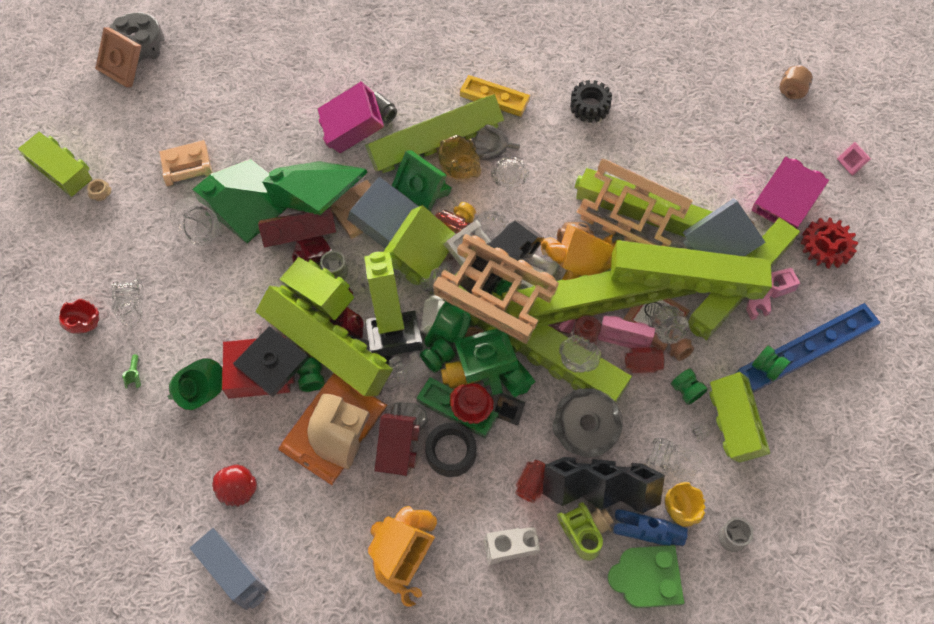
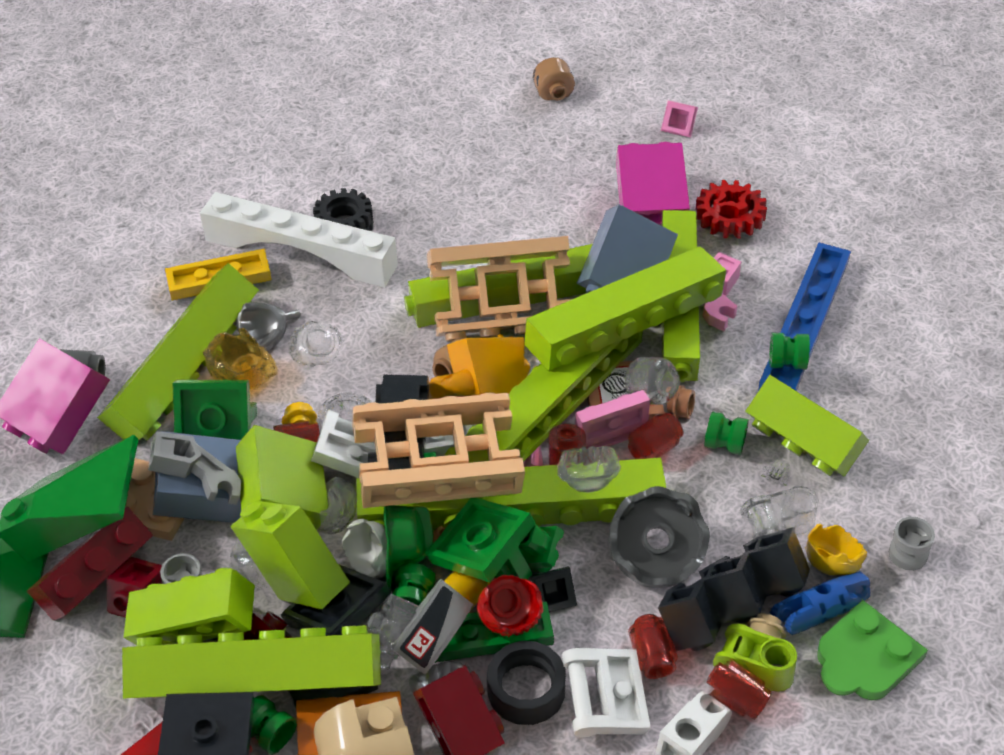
camera: 40 degrees left, 15 degrees down
(384, 214) = (193, 460): none -> light grey piece
(423, 385) = (432, 626): none -> slope
(492, 491) = (618, 690): none -> white plate
(554, 541) = (738, 689): none -> clear red brick
(574, 125) = (355, 251): none -> white arch

